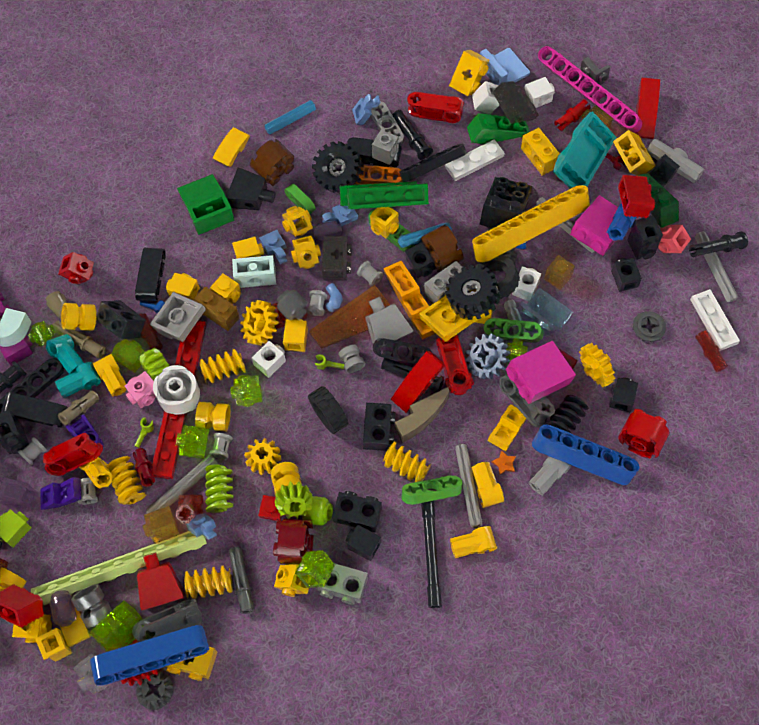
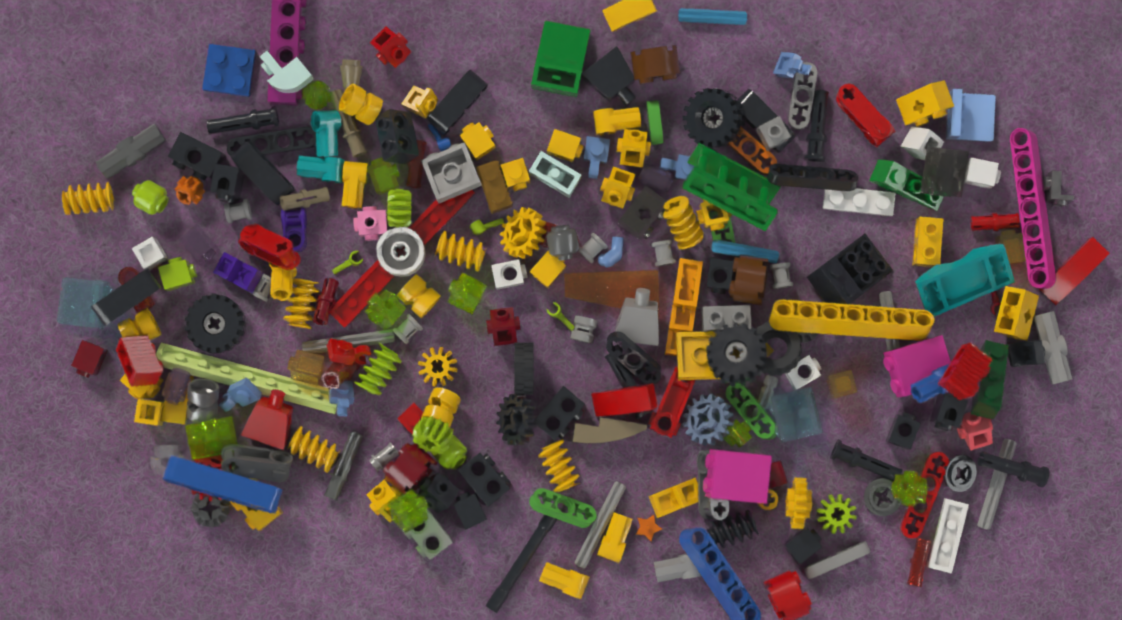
camera: 30 degrees right, 20 degrees up
(72, 555) = (230, 329): none -> black bush
(121, 578) = (241, 392): none -> medium blue plate
(123, 289) = (420, 101): none -> yellow bracket
(181, 491) = (343, 352): none -> red plate
(225, 345) = (478, 228): none -> lime hand
(266, 555) = (382, 458): none -> light grey pin
(269, 217) = (615, 120): none -> yellow piece
(291, 393) = (503, 326): none -> dark red brick
(329, 541) = (438, 492): none -> black brick
(349, 449) = (516, 417): none -> black gear
(368, 240) = (683, 222): none -> yellow piece
(462, 234) = (781, 275): none -> light grey bush
(572, 390) = (771, 505): none -> yellow bush
(609, 313) = (855, 457): none -> black pin
(630, 365) = (843, 518): none -> lime gear
(655, 387) = (832, 562): none -> light grey beam
(663, 302) = (914, 493): none -> clear neon green brick
(679, 305) = (930, 497): none -> red beam
(690, 277) = (968, 473): none -> gear

